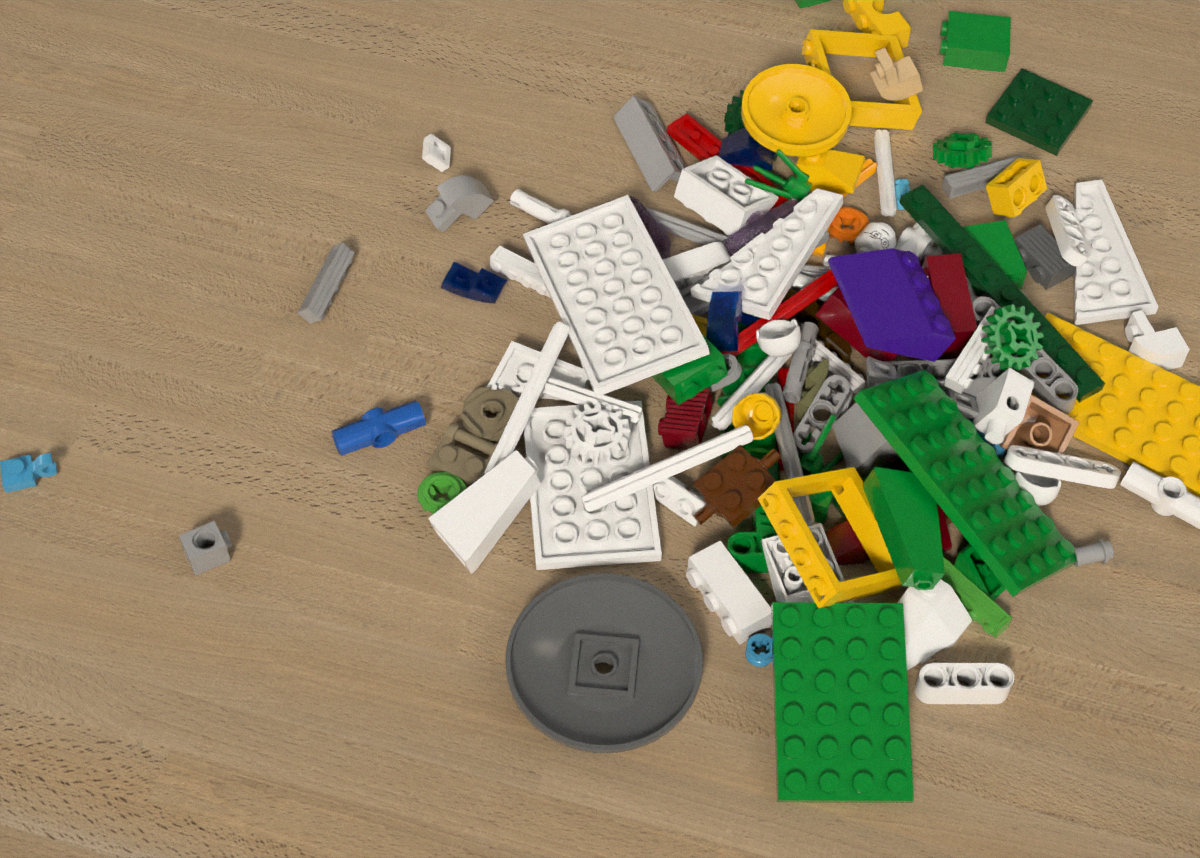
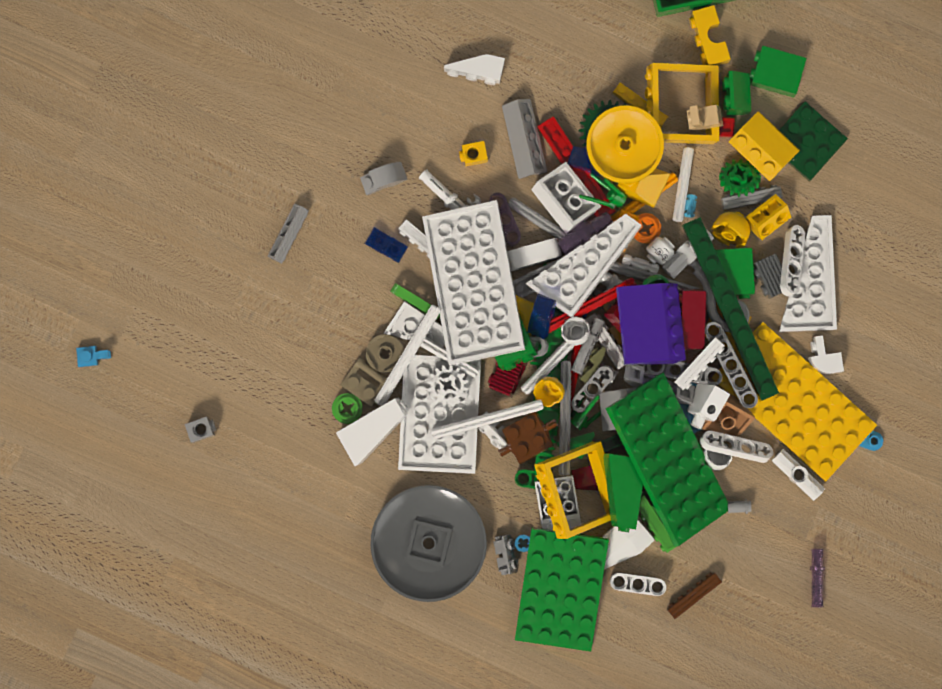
camera: 10 degrees right, 30 degrees up
(378, 428) = (312, 355): blue piece -> none
(436, 152) = (372, 129): white plate -> none
(504, 332) = (410, 298): none -> bright green beam
(572, 75) = (481, 67): none -> white slope
(584, 165) = (479, 147): none -> yellow brick
(729, 592) = (510, 504): white brick -> none
(741, 680) = (508, 563): none -> light grey hinge
(928, 107) = (727, 129): none -> red tile
(931, 63) = (737, 93): none -> green slope
(971, 202) = (731, 228): none -> yellow cylinder
(983, 111) = (764, 146): none -> yellow slope
(1012, 337) = (729, 358): green gear -> none
(1059, 691) = (694, 595): none -> reddish brown piece

